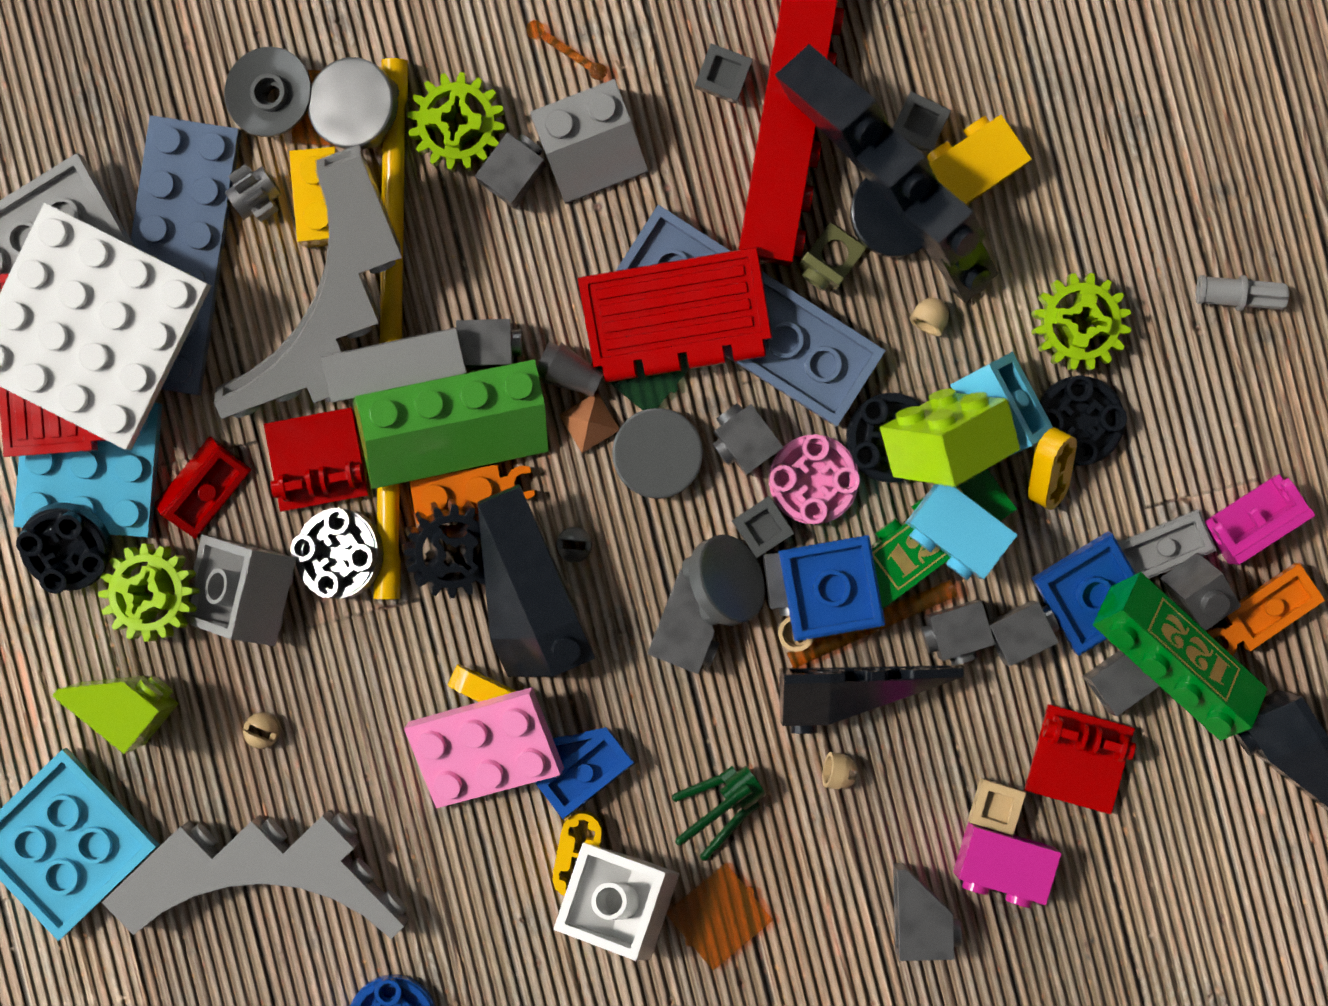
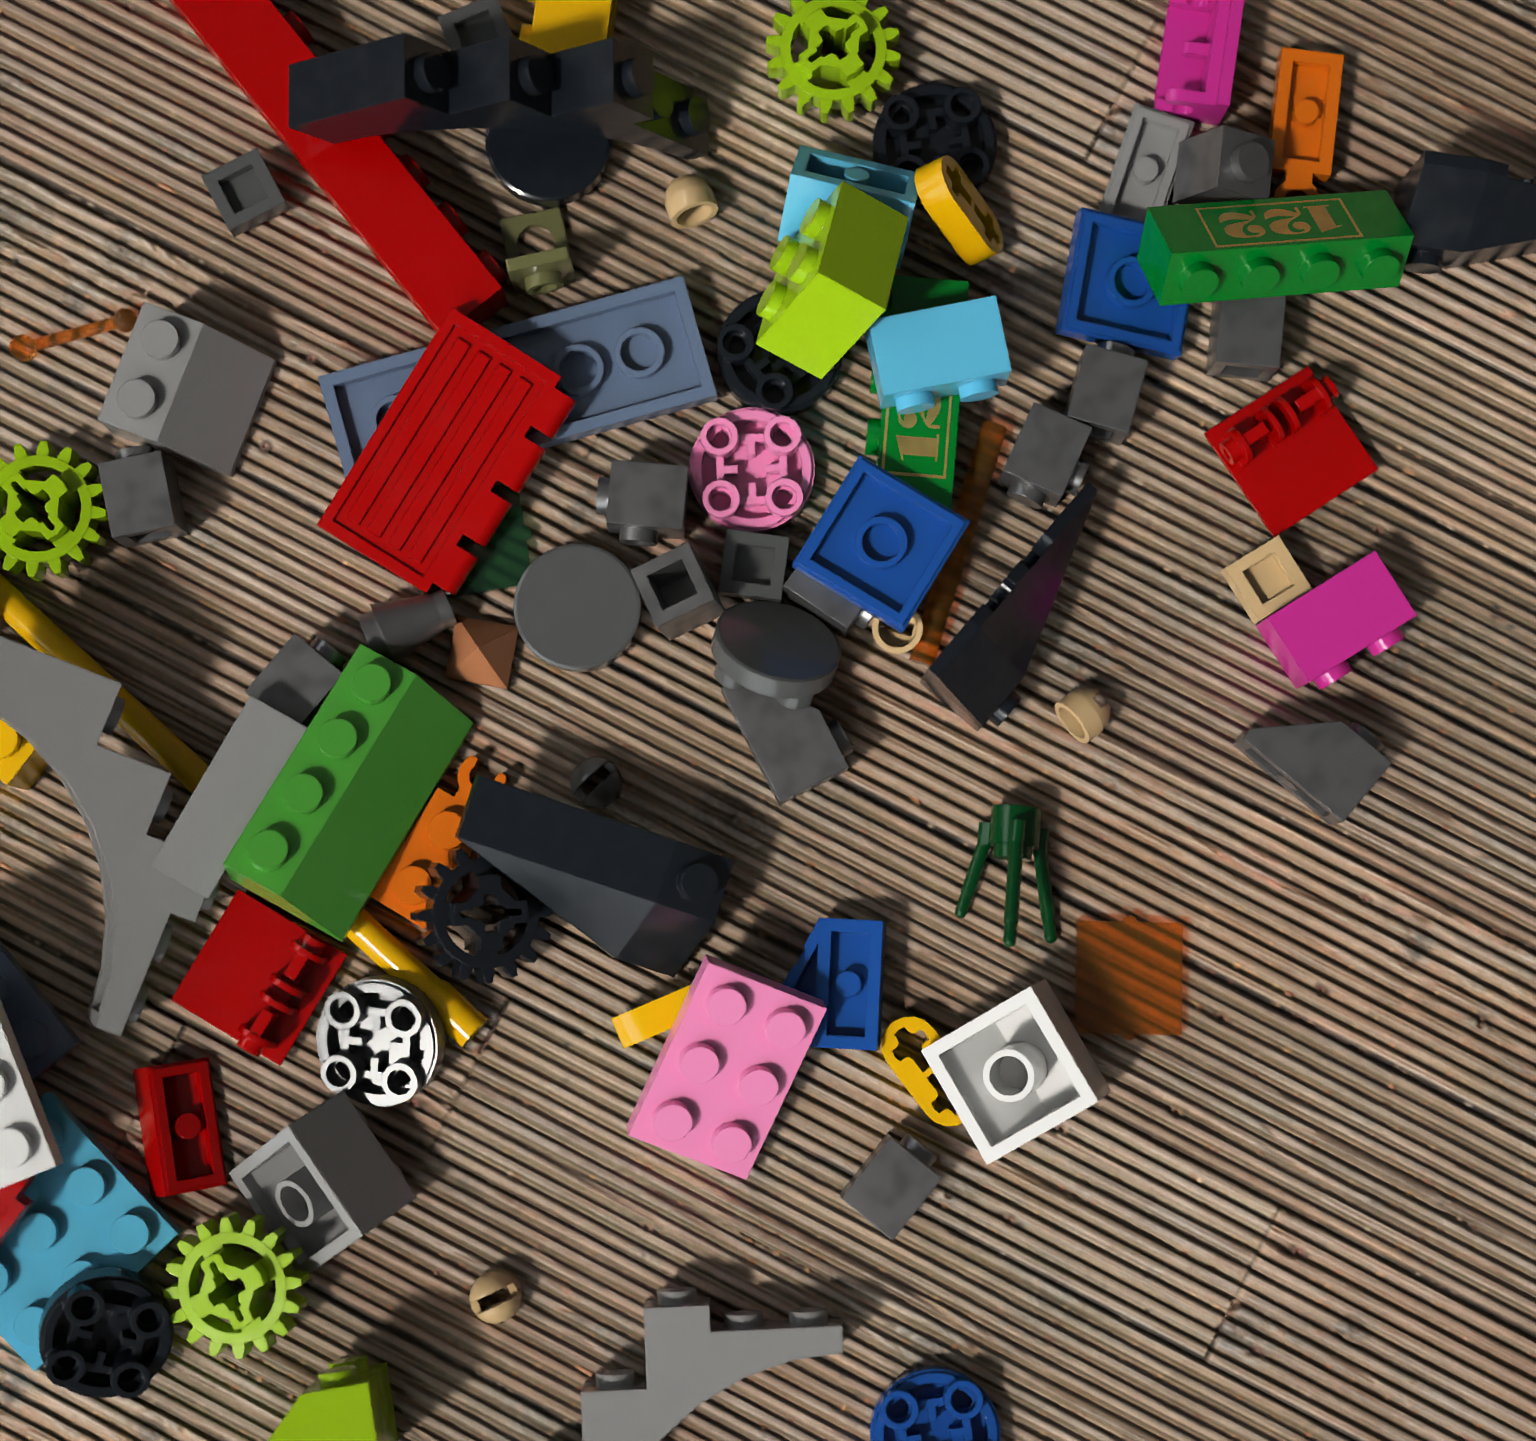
camera: 55 degrees left, 5 degrees down
(500, 887) = (892, 1183): none -> flat silver brick
(712, 501) = (678, 591): none -> flat silver brick

